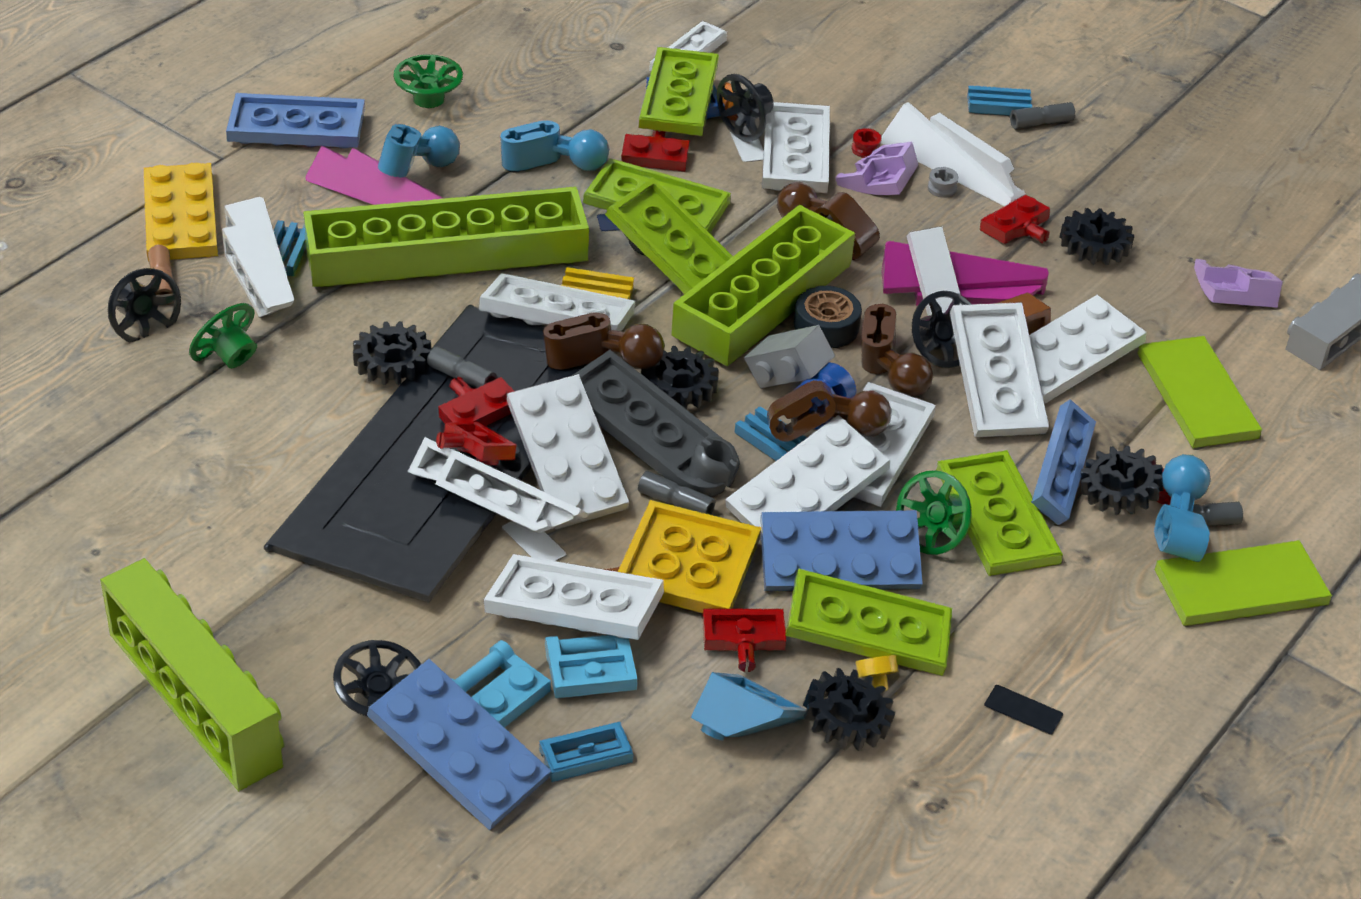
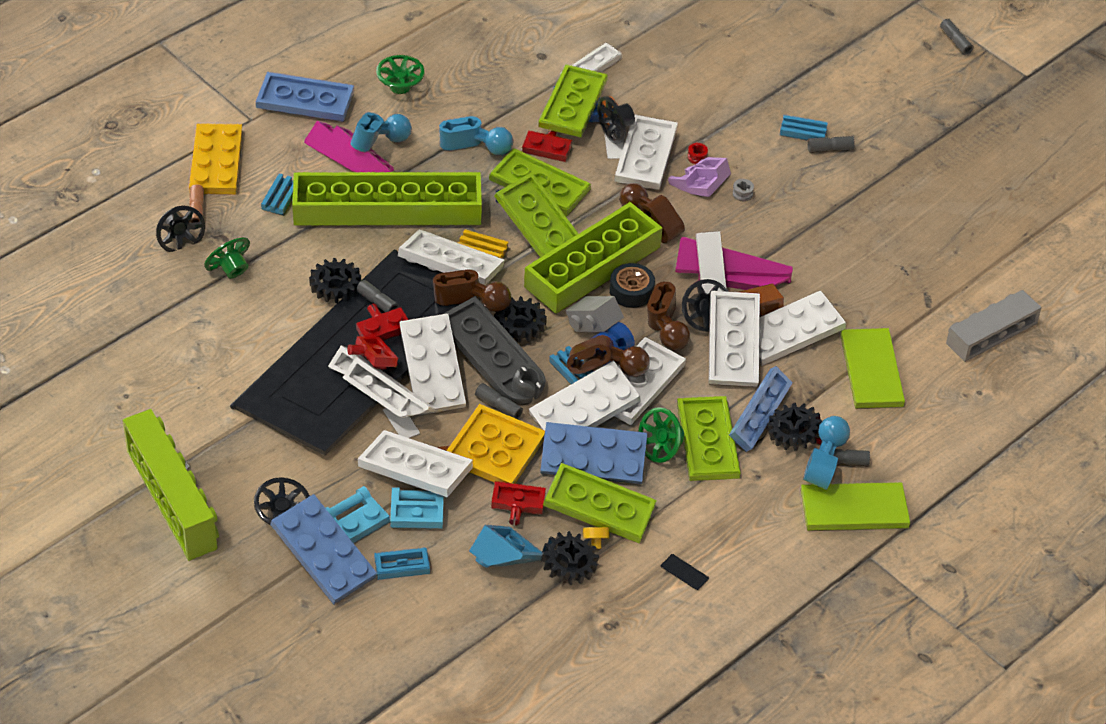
camera: 10 degrees right, 5 degrees up
(256, 256) = (258, 198): white wedge -> none
(946, 144) = (754, 164): white wedge -> none
(1017, 220) = (786, 225): red plate -> none
(1096, 236) = (837, 244): black gear -> none
(1238, 285) = (927, 292): lavender slope -> none

